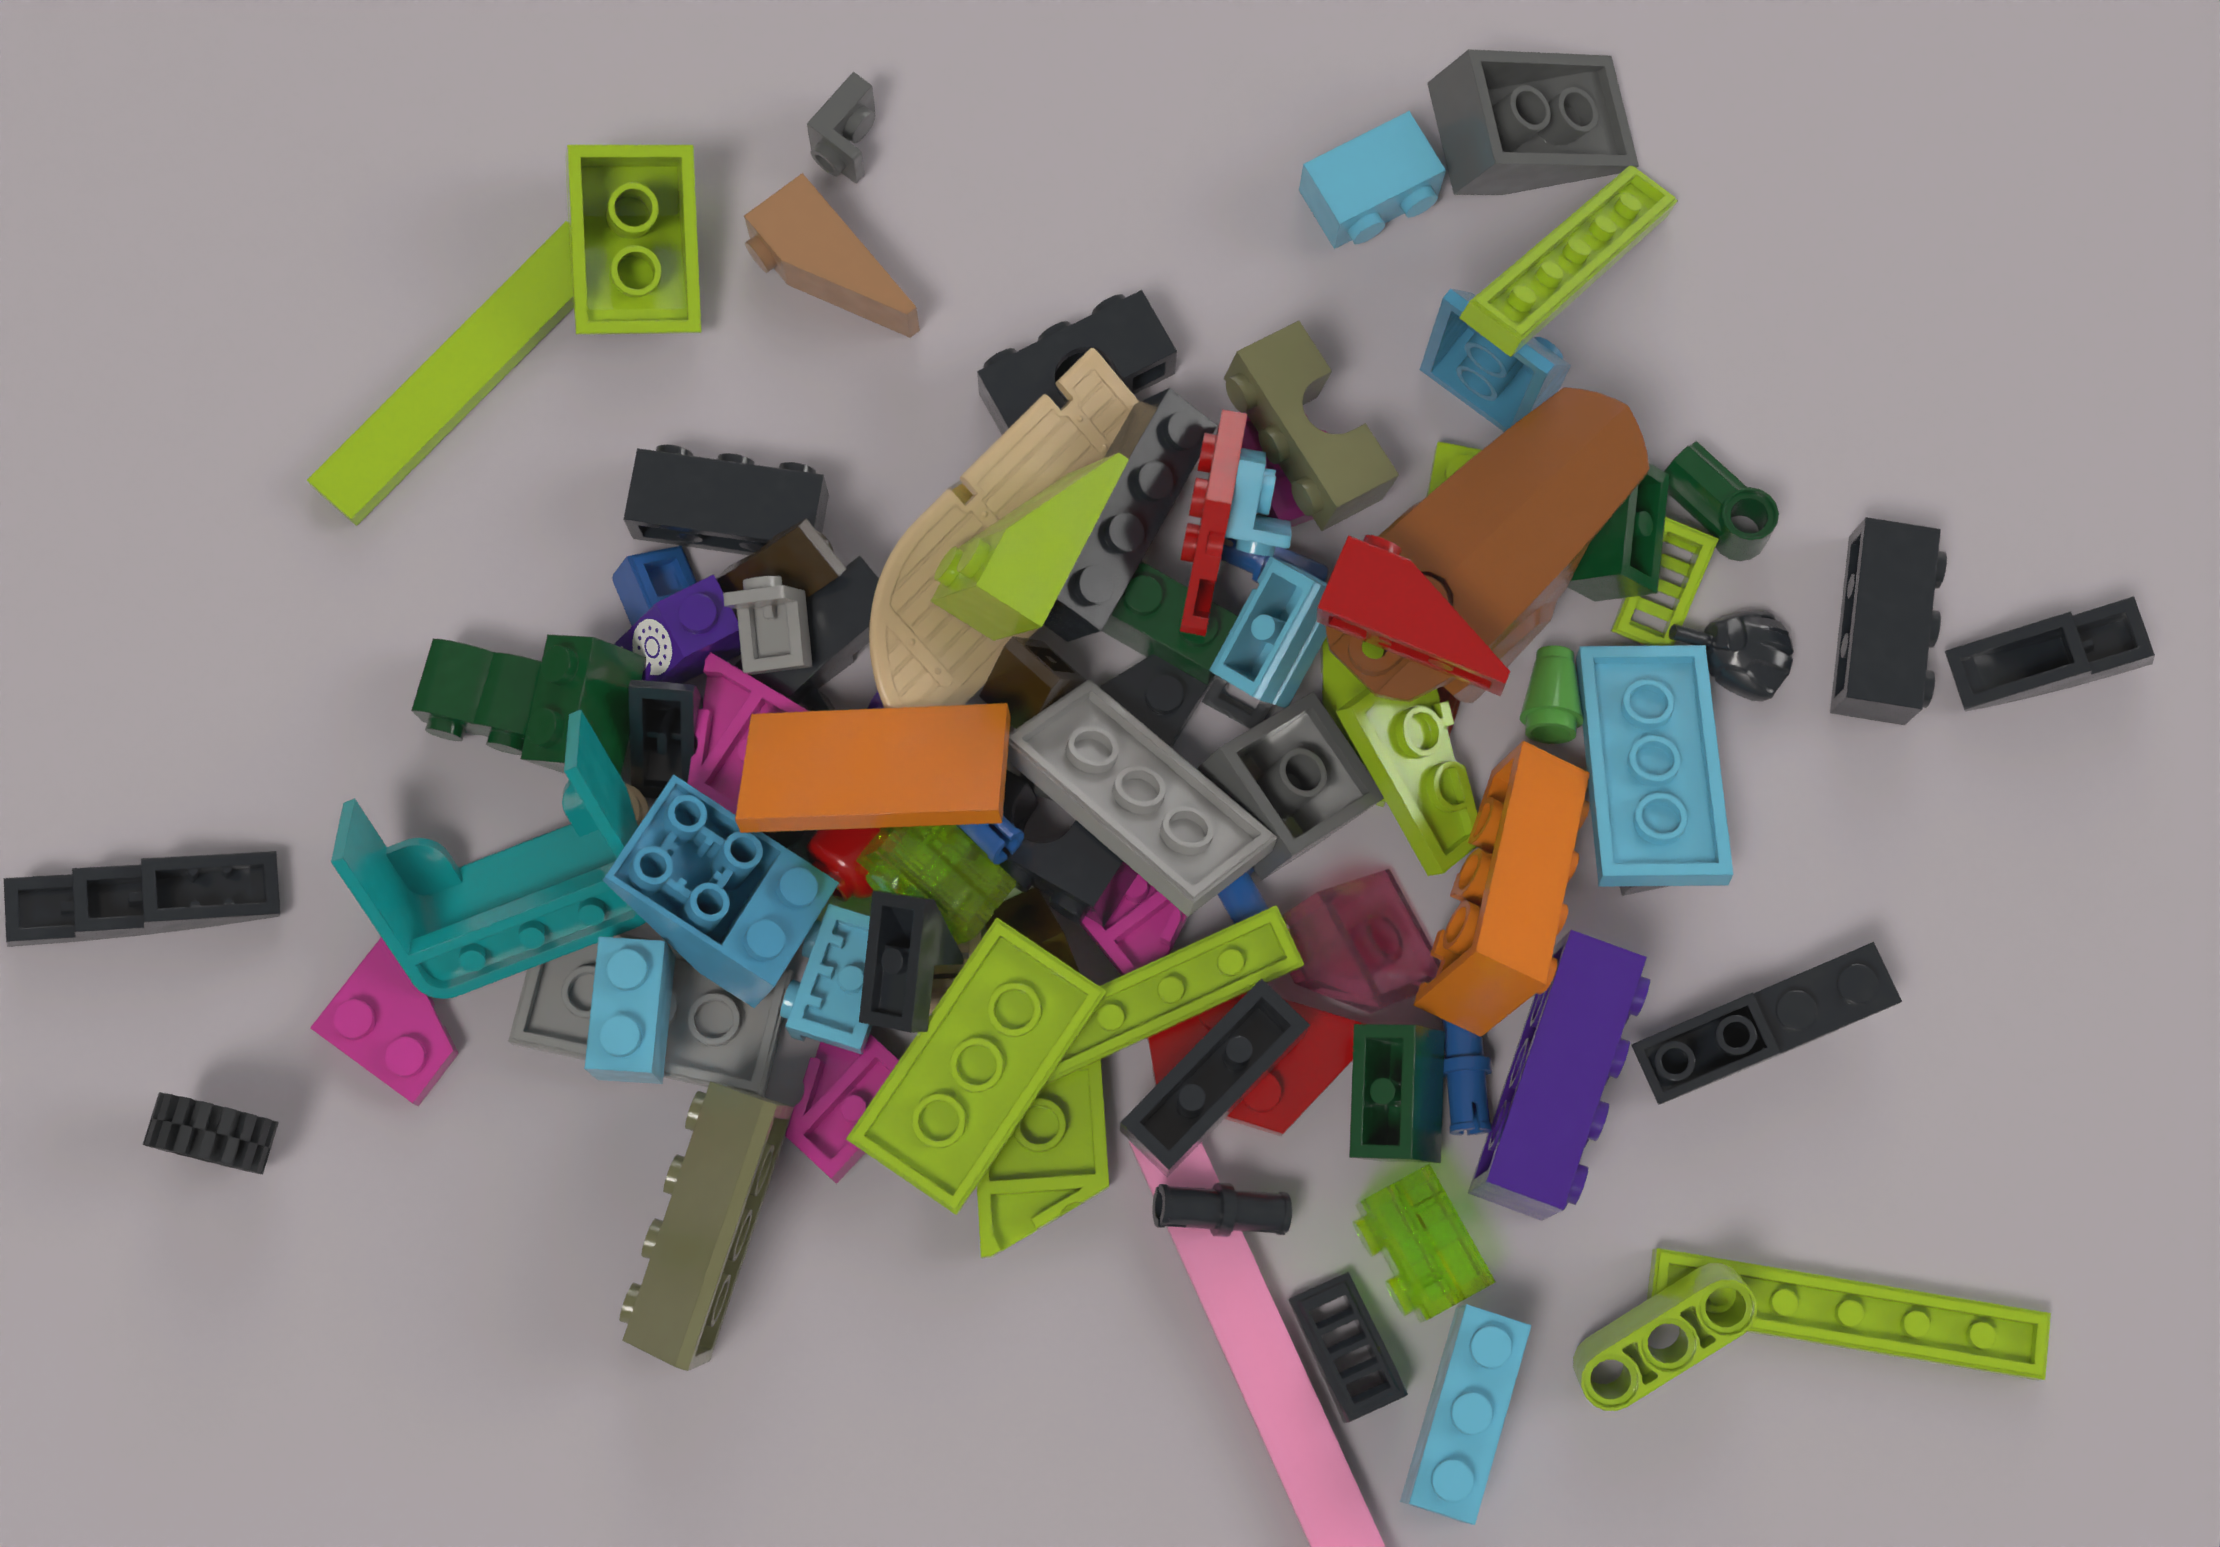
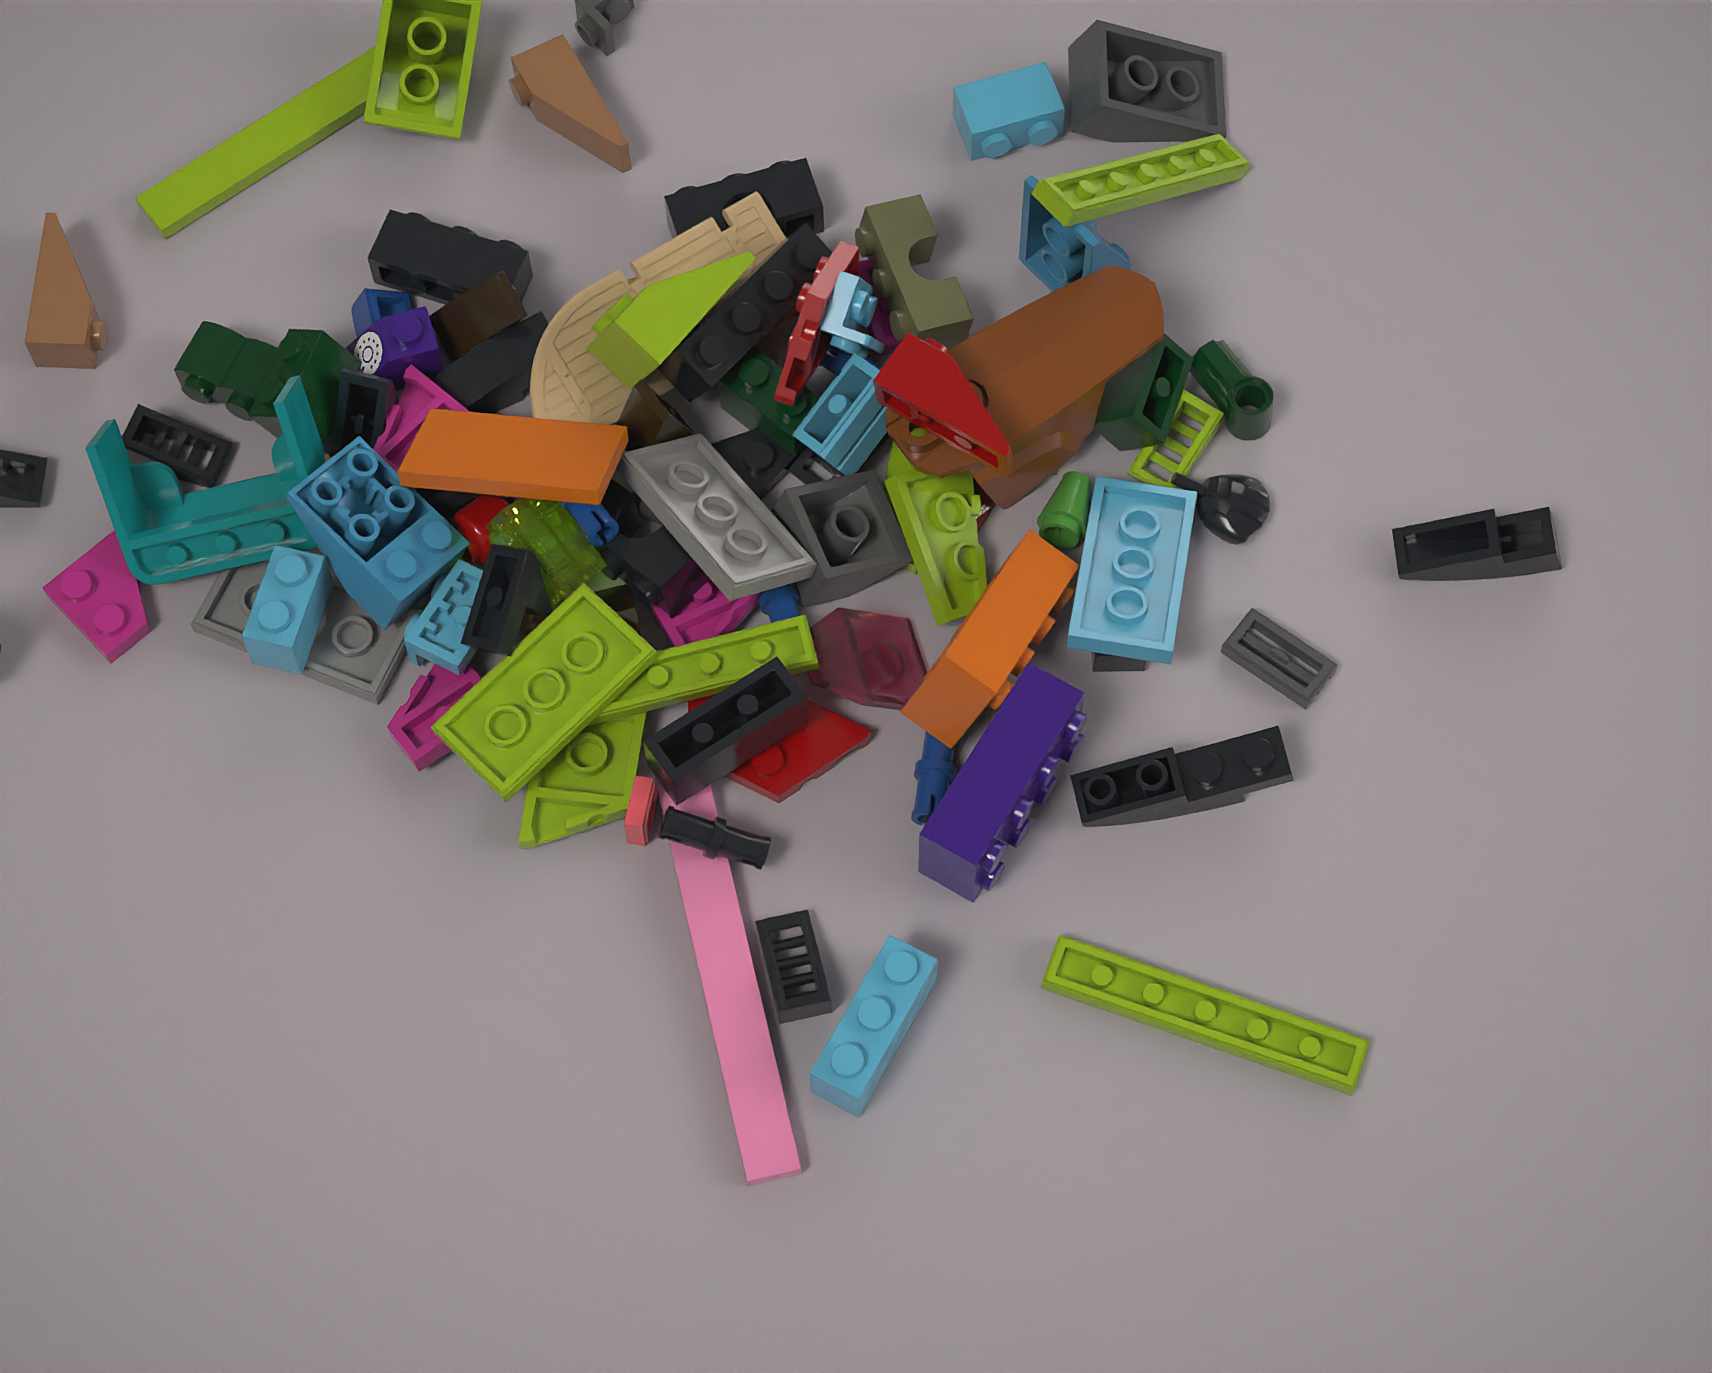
camera: 15 degrees right, 10 degrees down
(251, 655) = (62, 317): none -> medium nougat slope
(413, 782) = (149, 421): none -> black slope
(705, 1226) = (312, 774): olive slope -> none
(771, 625) = (460, 347): light grey bracket -> none
(1122, 1186) = (641, 811): none -> coral tile
(1397, 1093) = (872, 775): dark green brick -> none
(1422, 1244) = (869, 894): clear neon green brick -> none
(1698, 1337) = (1018, 998): lime beam -> none
(1831, 861) = (1268, 673): none -> dark grey tile
(1888, 621) = (1349, 499): black brick -> none

